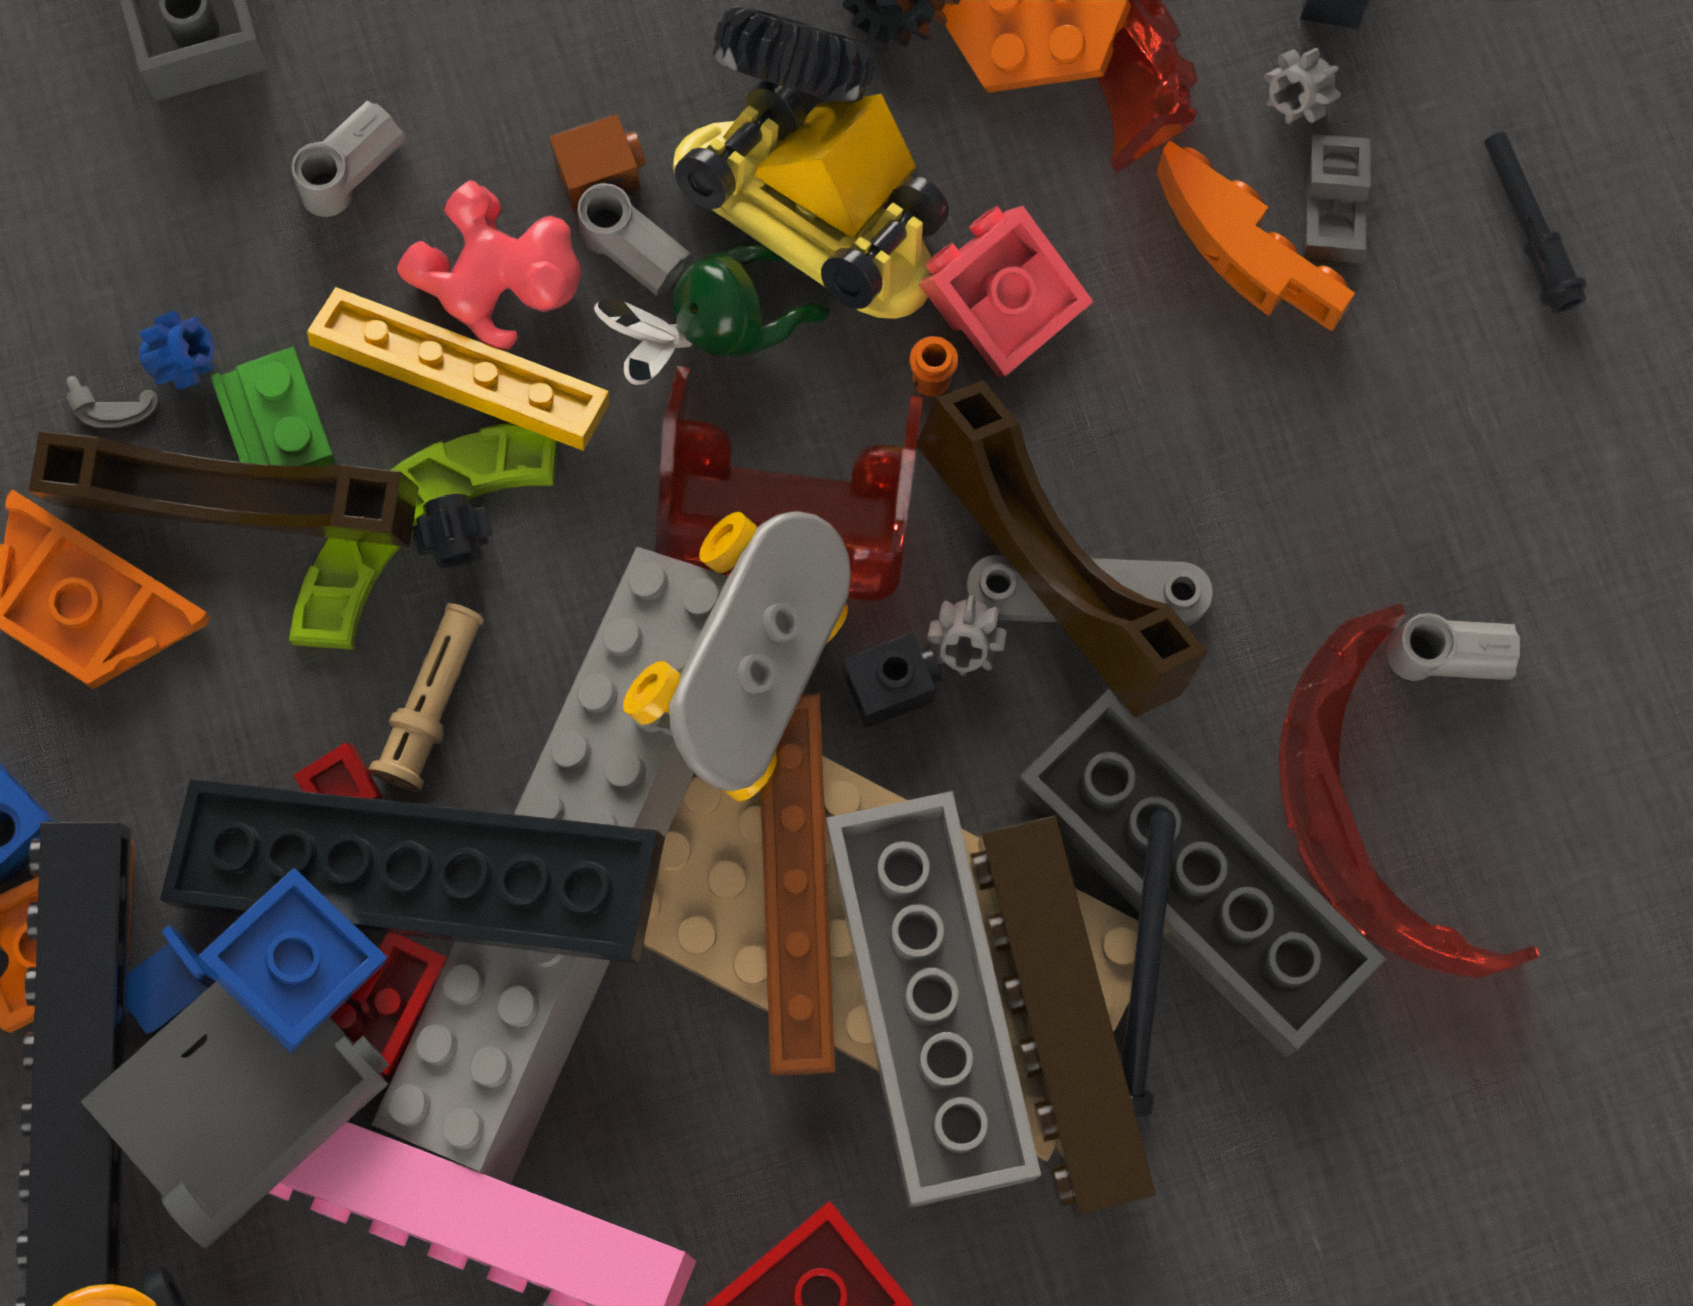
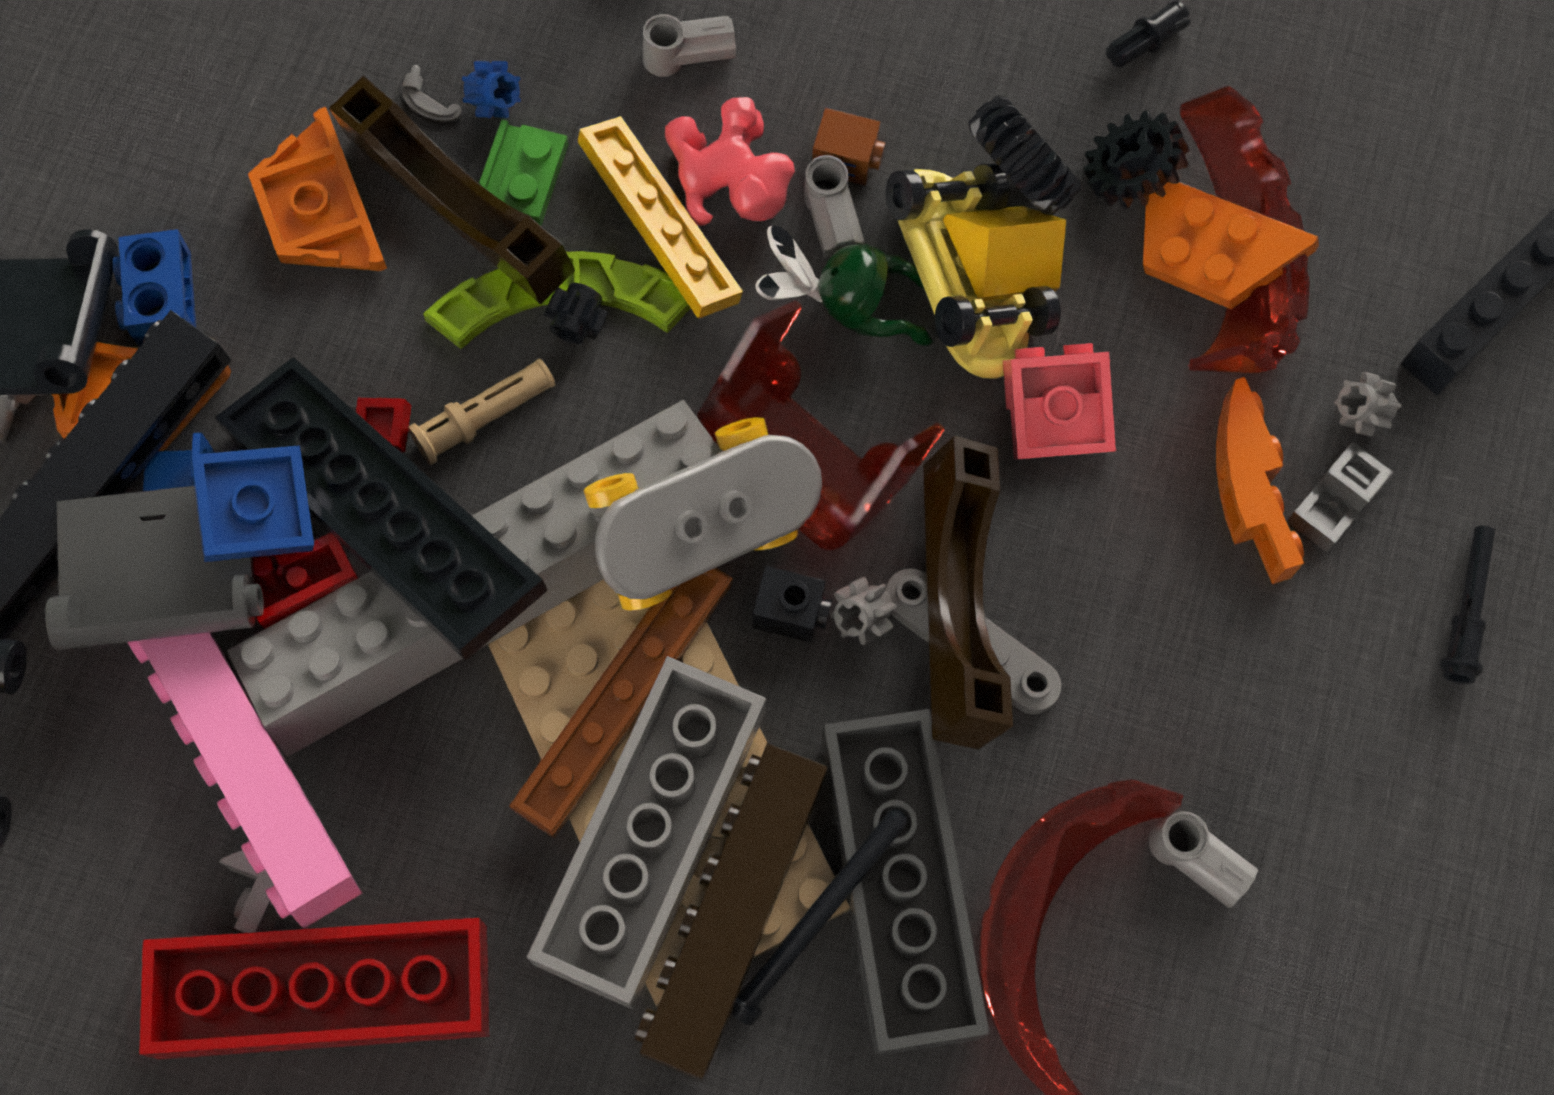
camera: 35 degrees right, 5 degrees down
(933, 365) = (972, 417): orange pin -> none

